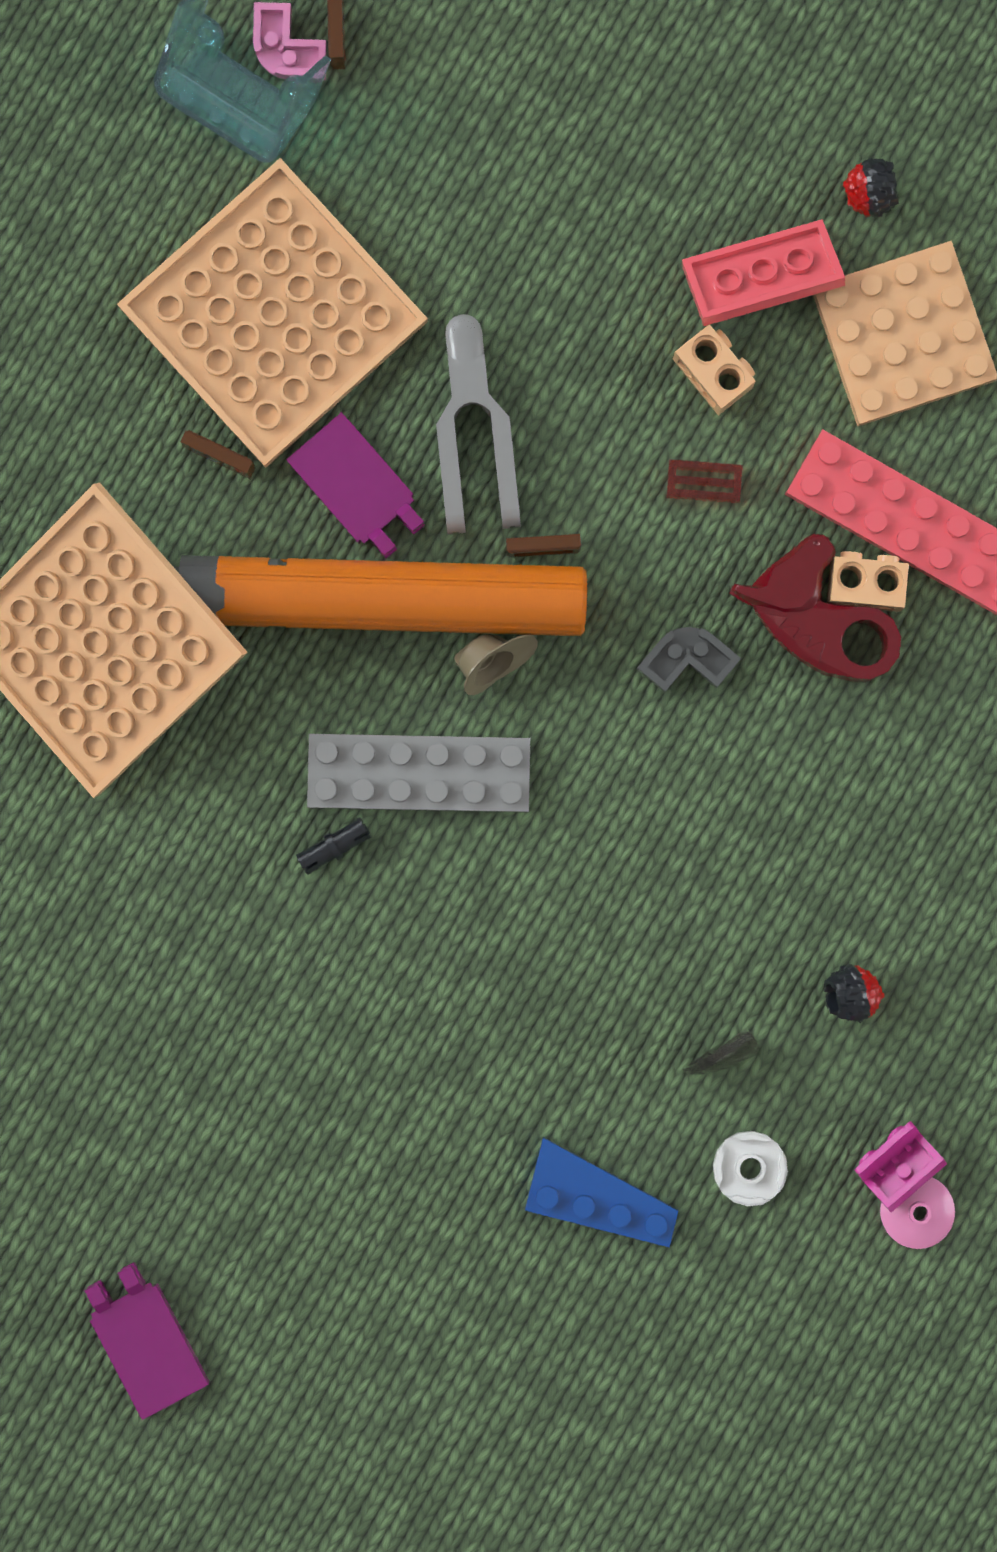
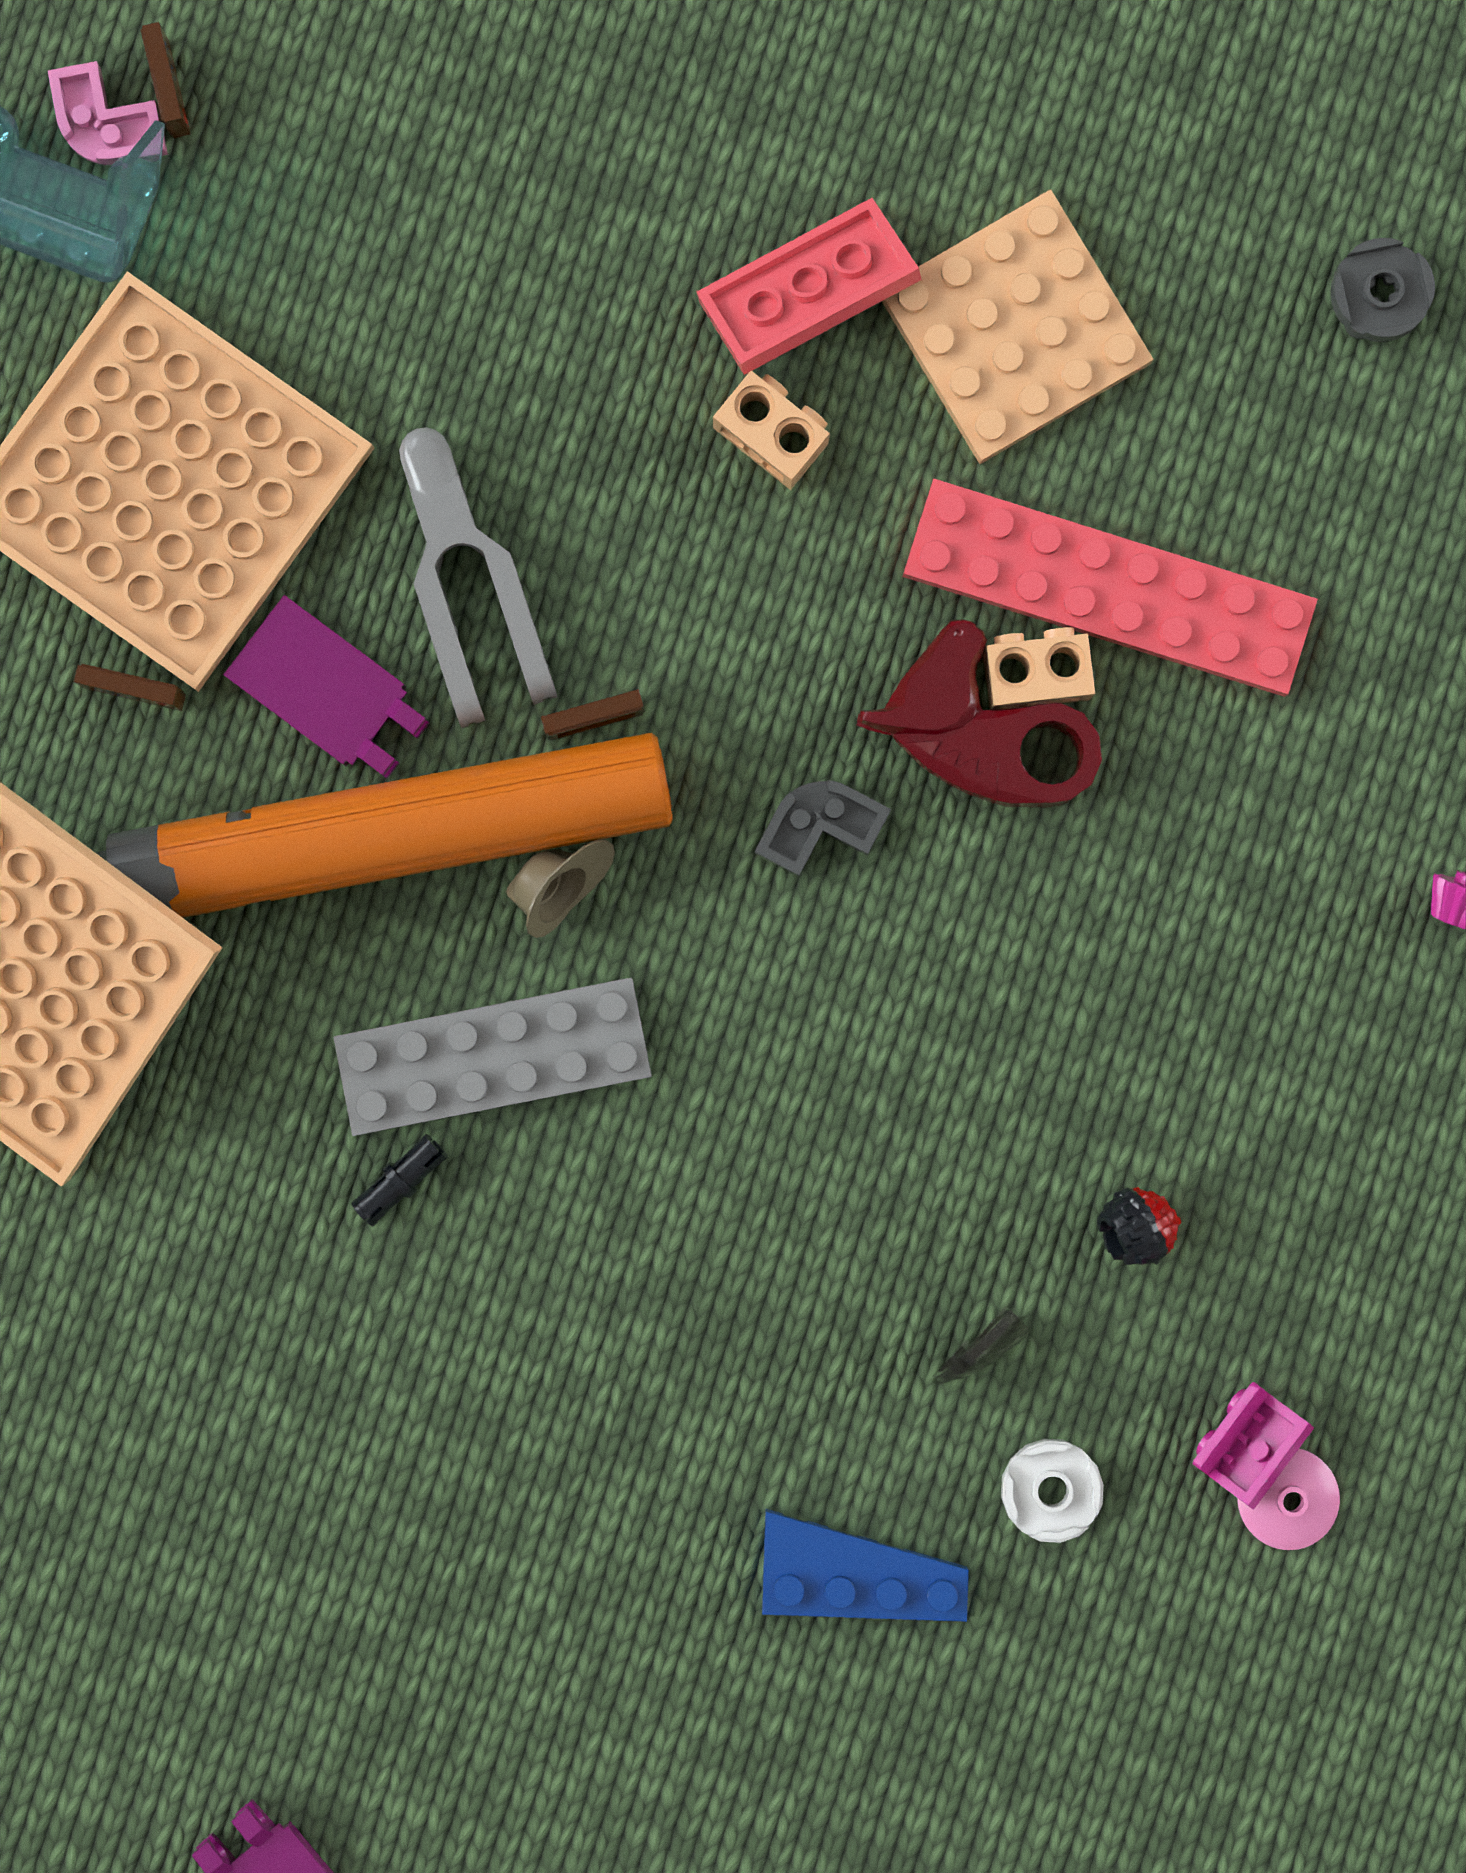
camera: 15 degrees left, 0 degrees up
(673, 479) = (793, 601): clear red tile -> none
(872, 187) = (929, 141): black piece -> none

